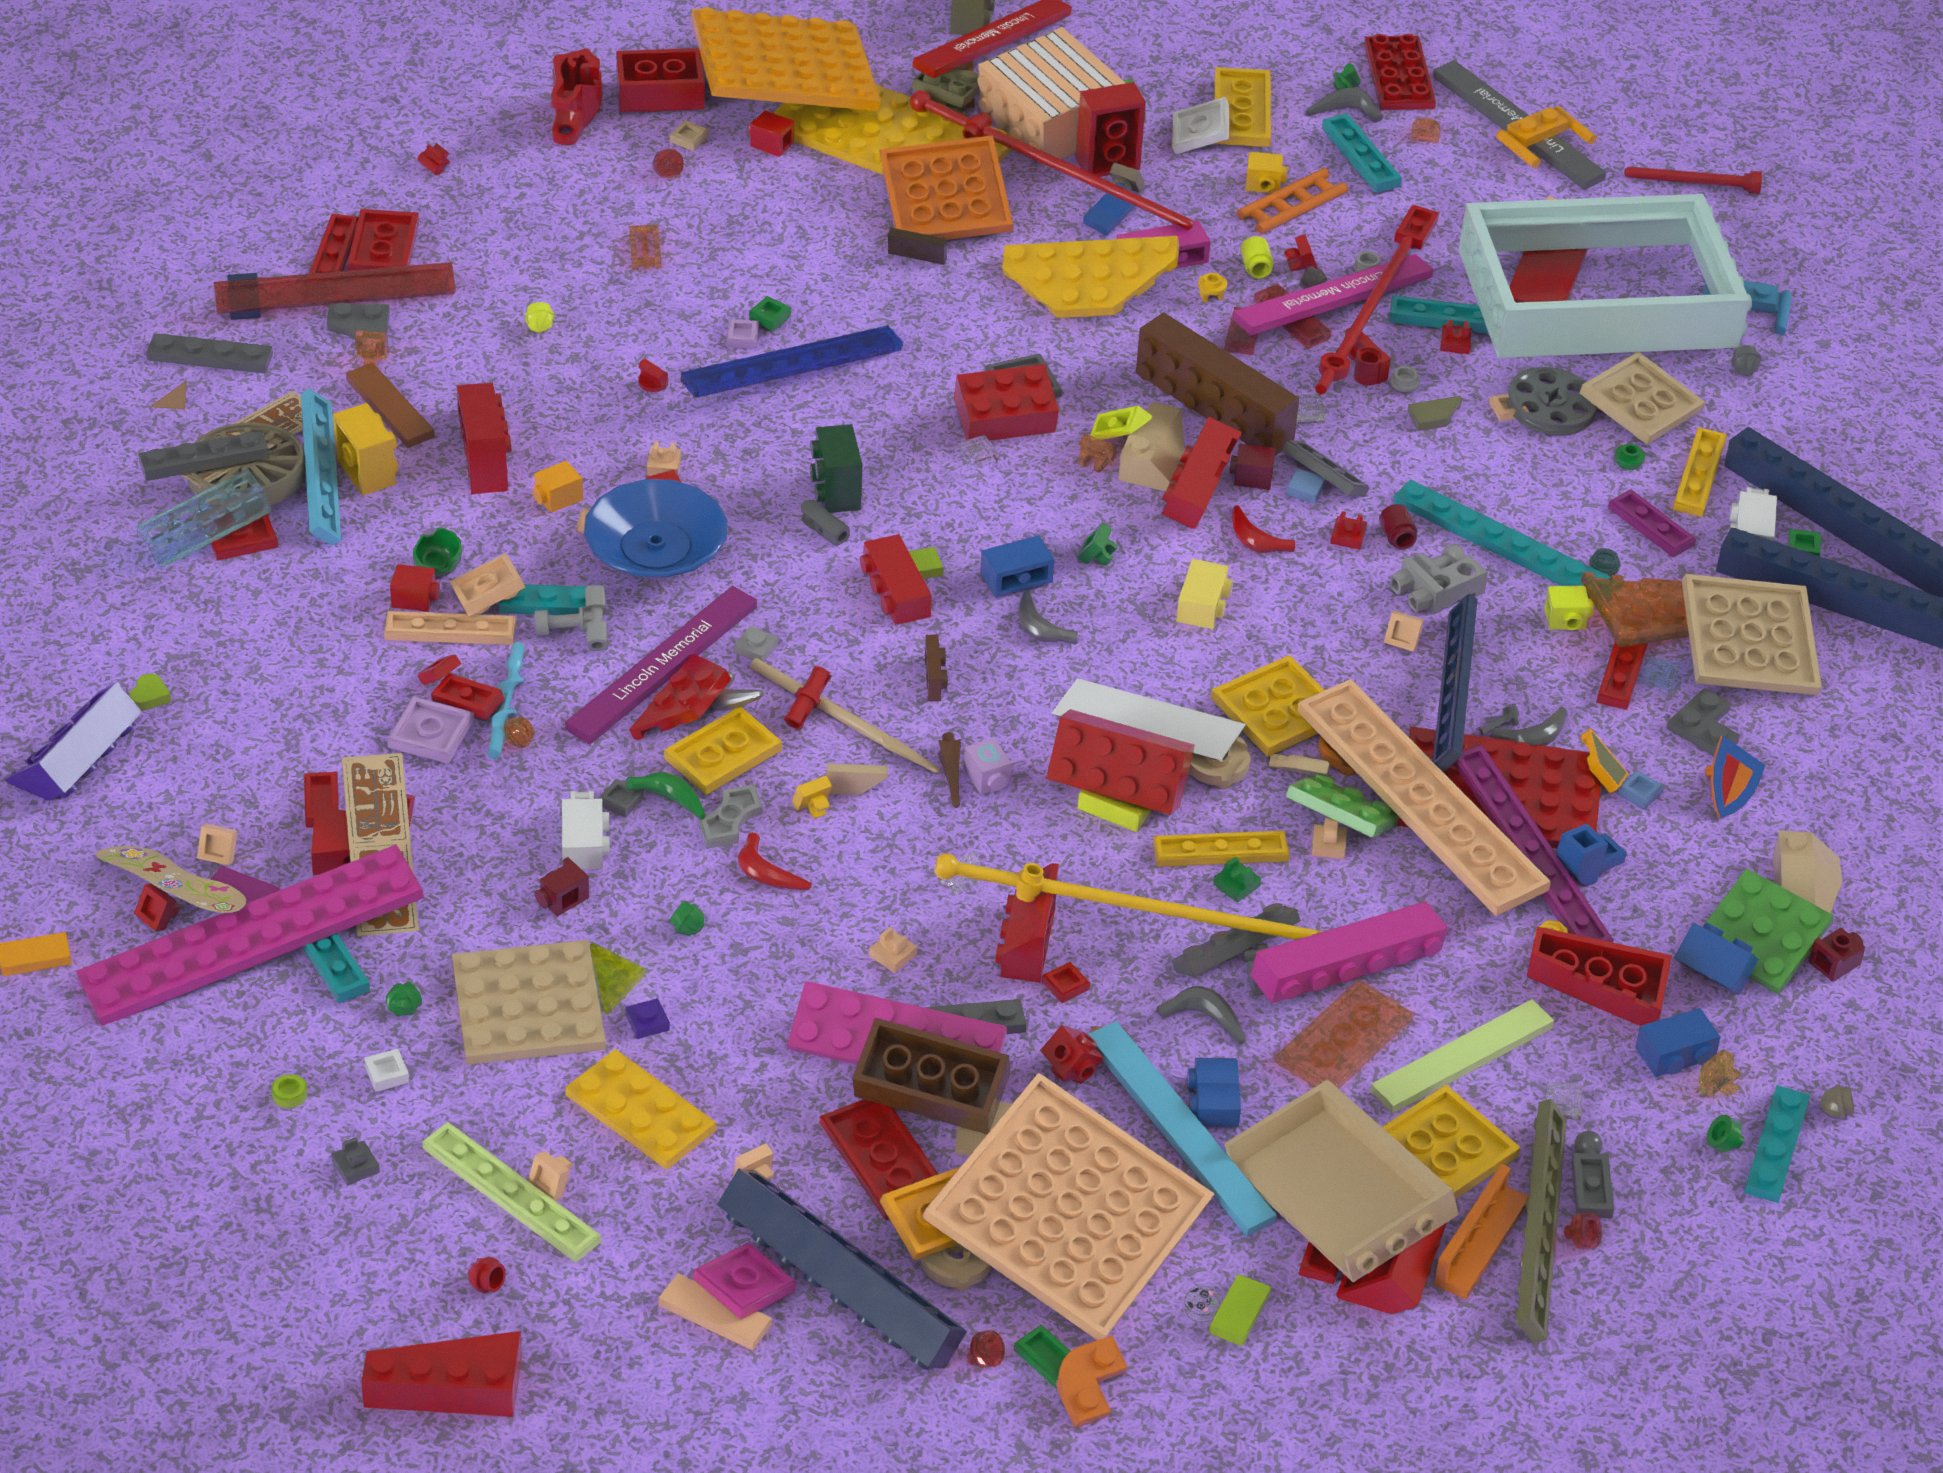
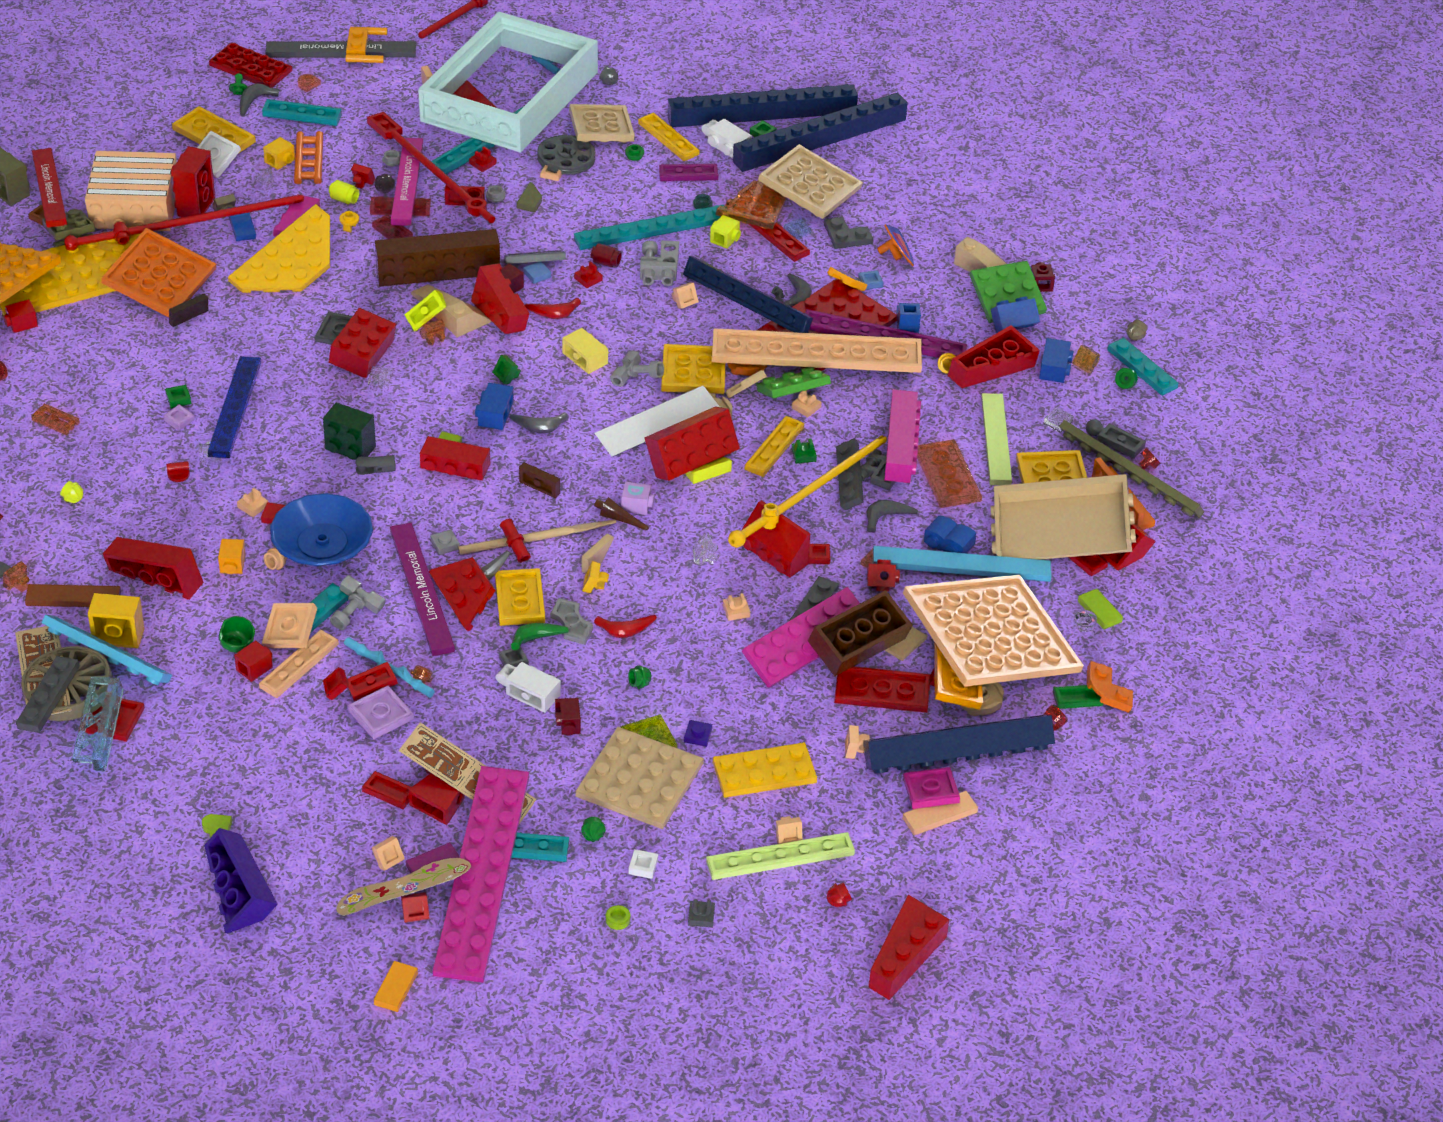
camera: 55 degrees left, 0 degrees up
(1218, 651) = (632, 368): none -> light grey bar

